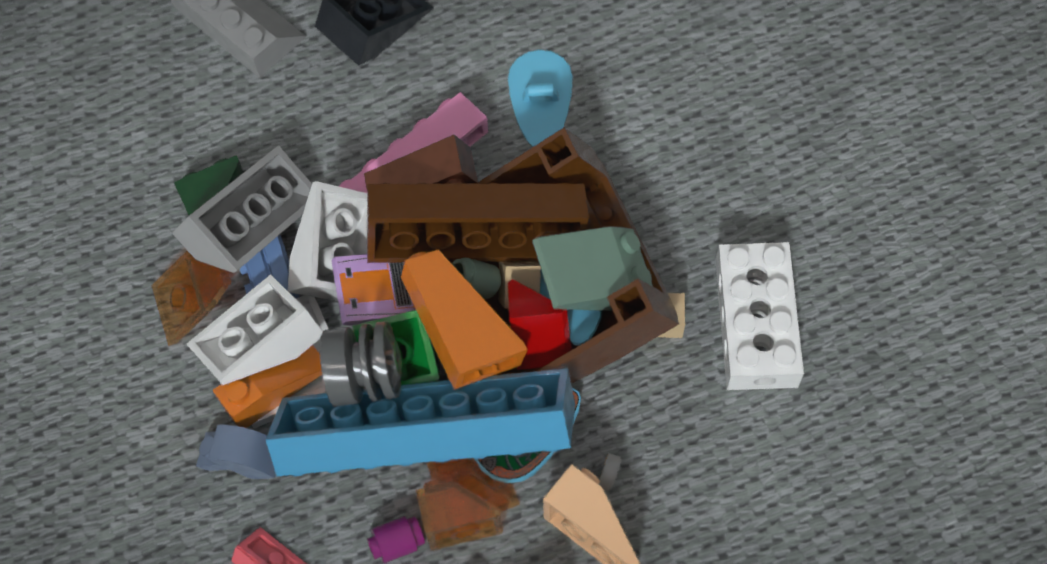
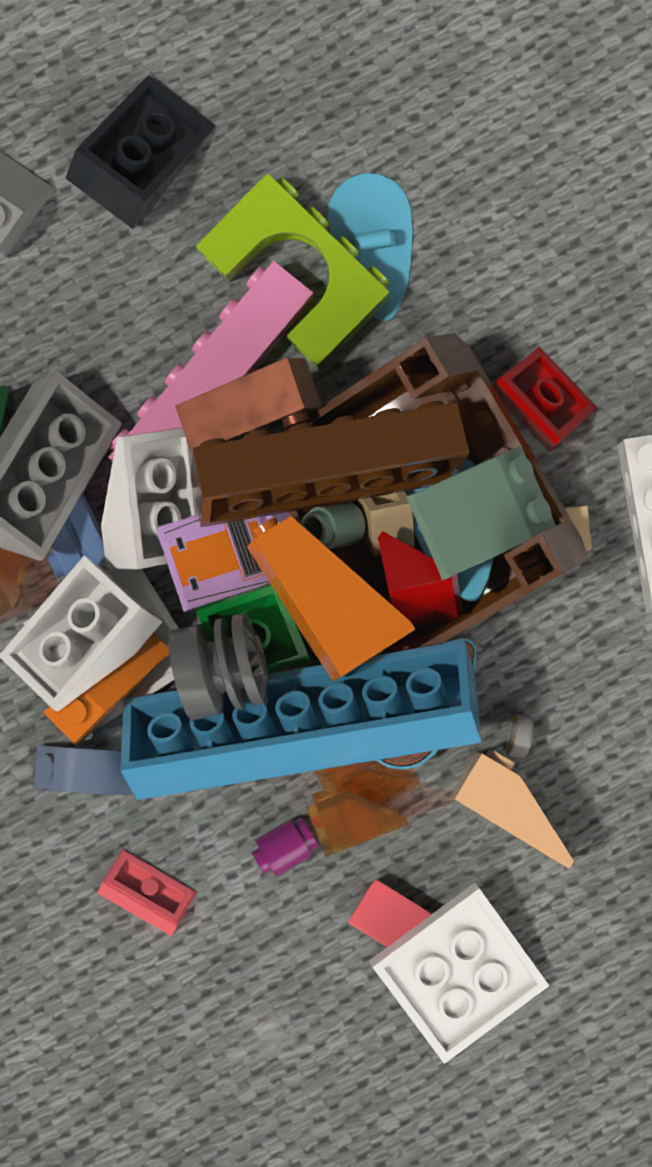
camera: 10 degrees left, 20 degrees up
(466, 66) = (272, 216): none -> lime arch
(658, 217) = (543, 398): none -> red slope

